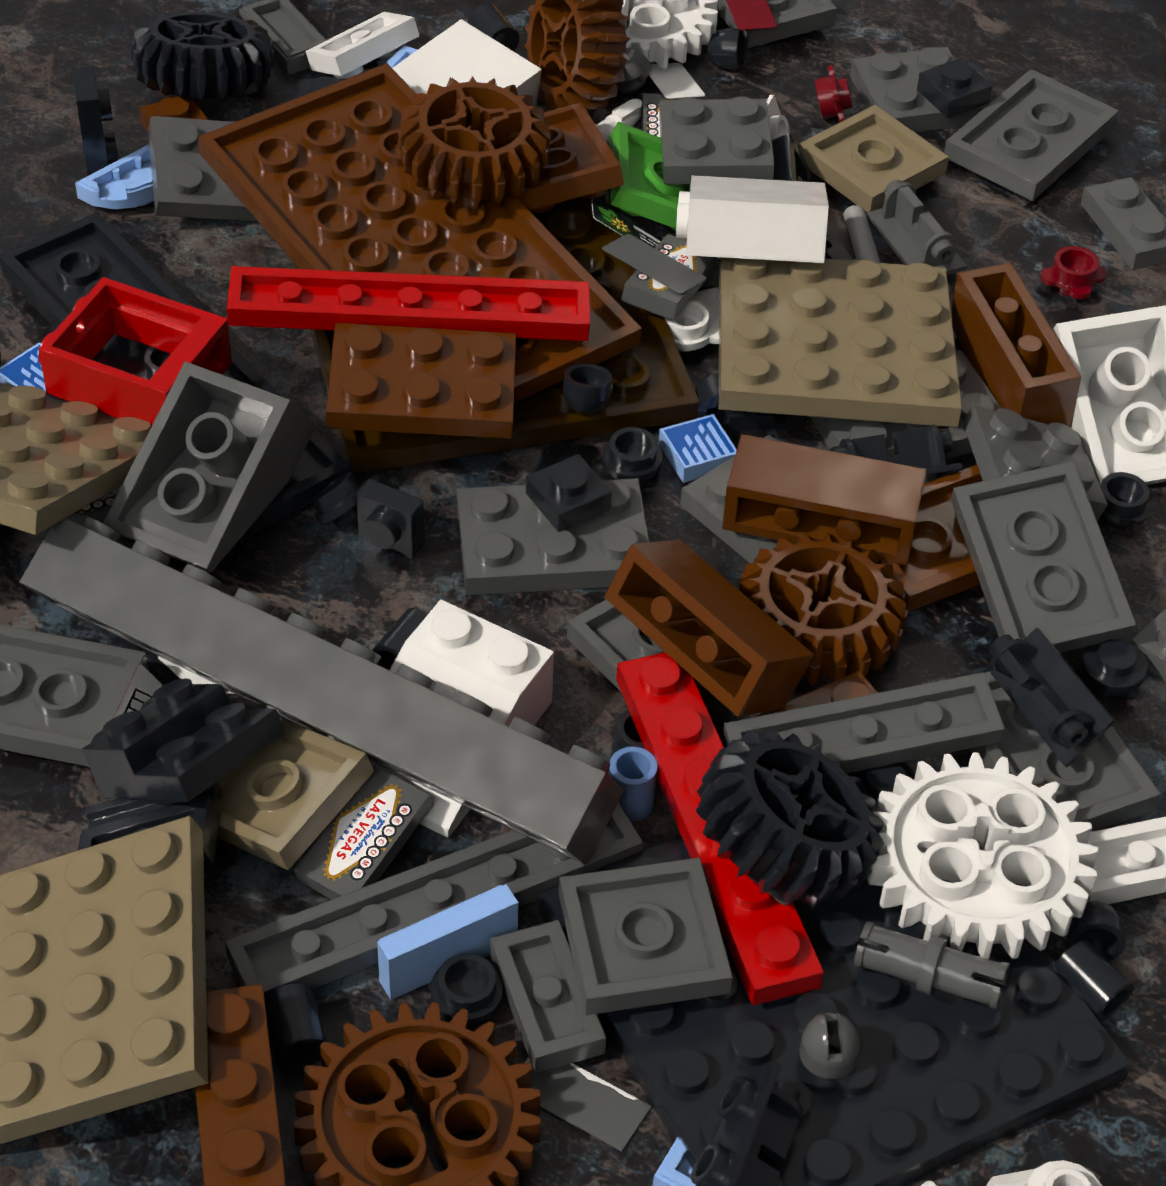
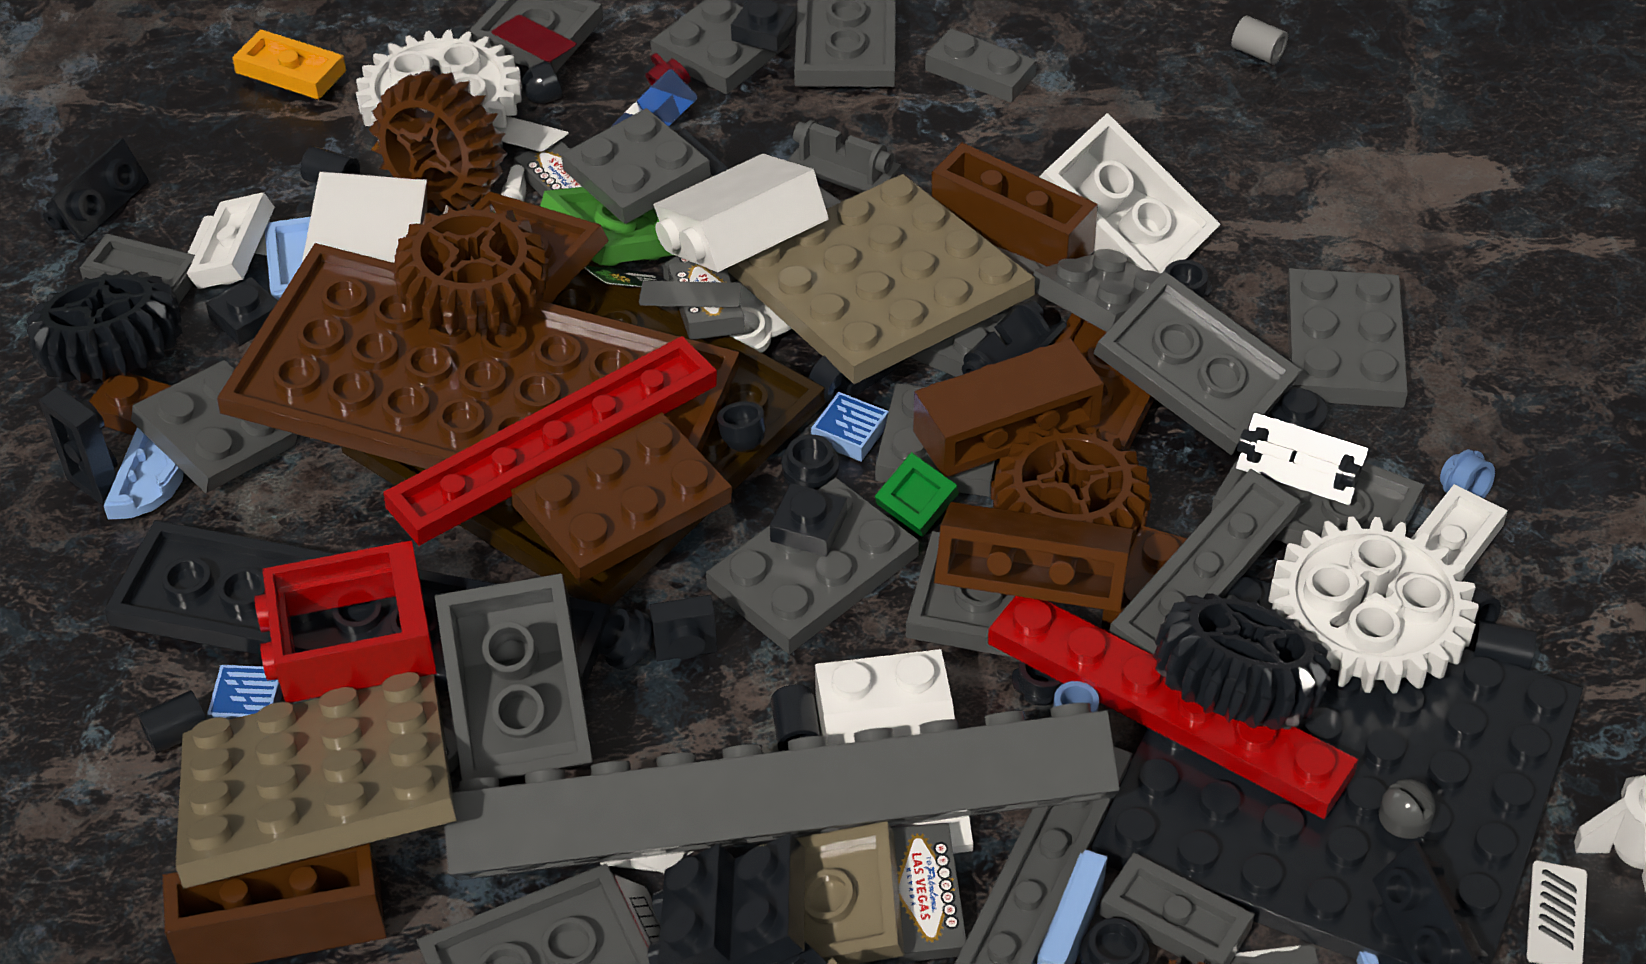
camera: 35 degrees left, 0 degrees up
(644, 936) = (1216, 819): dark grey plate -> none
(693, 522) = (916, 494): none -> green plate
(810, 110) = (665, 98): none -> dark blue sticker
(868, 154) = (749, 114): dark tan plate -> none
(931, 965) = (1418, 704): dark grey pin -> none
(1074, 272) = (982, 126): dark red plate -> none

